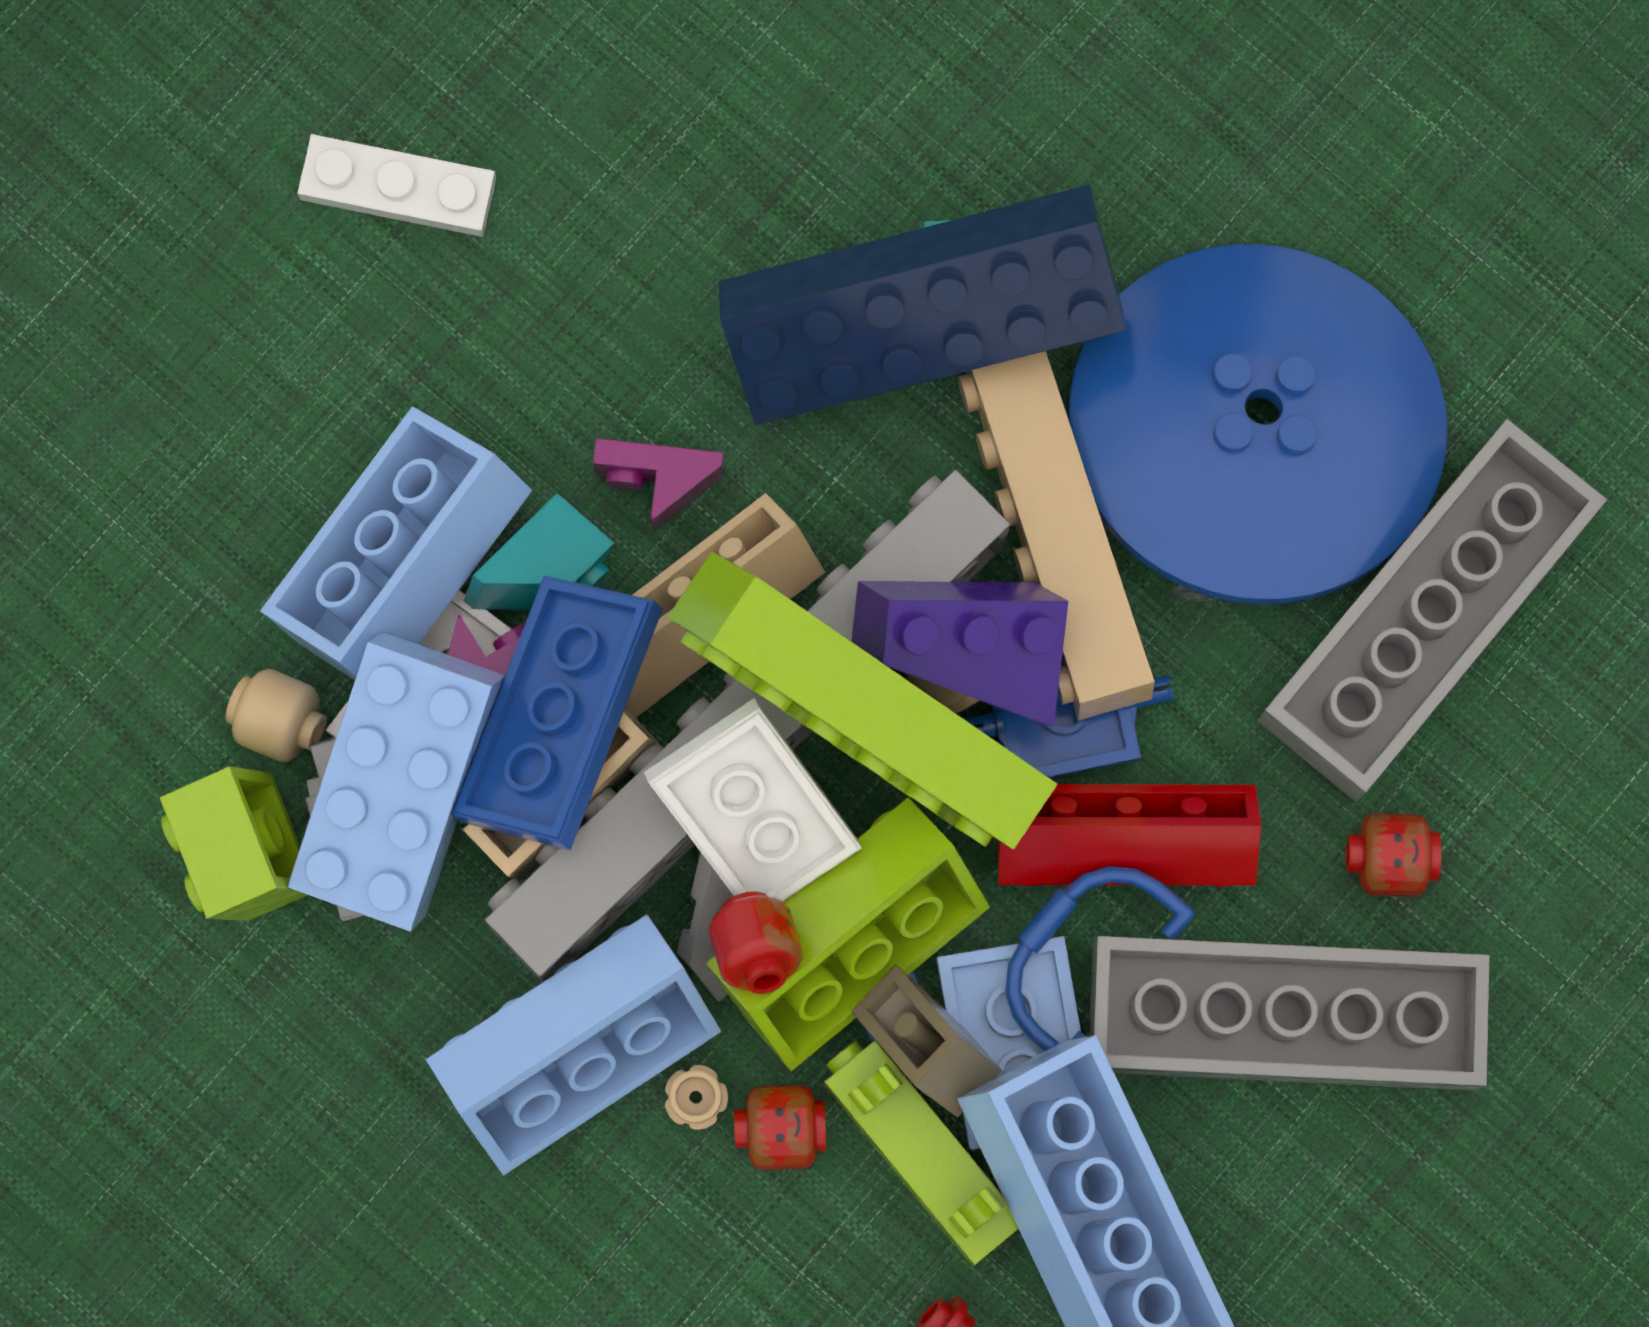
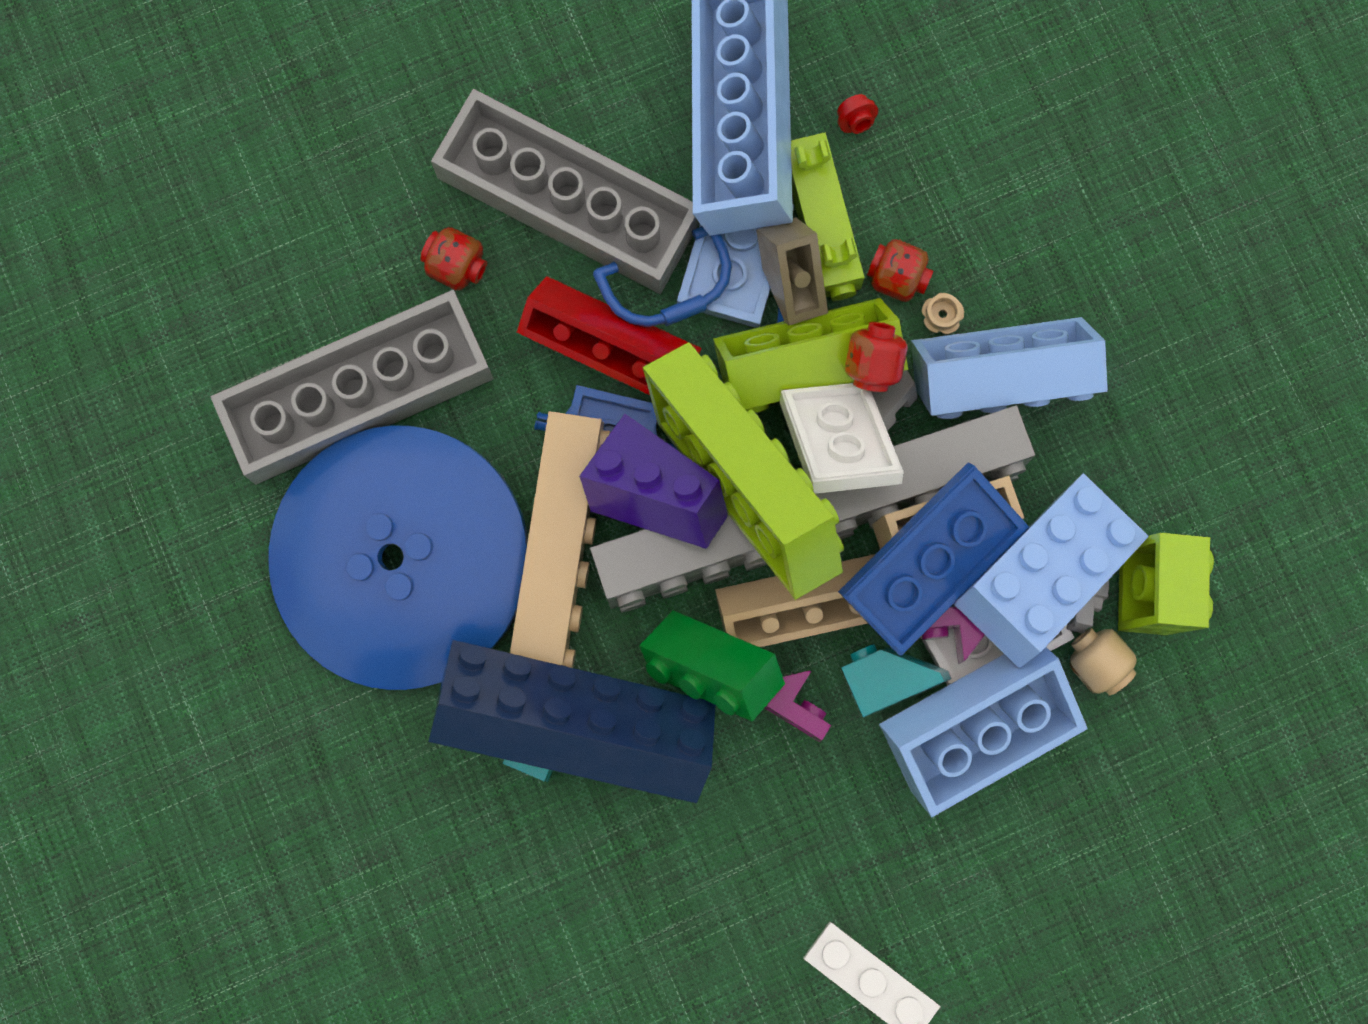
camera: 150 degrees left, 0 degrees up
(782, 457) = (712, 665): none -> green brick

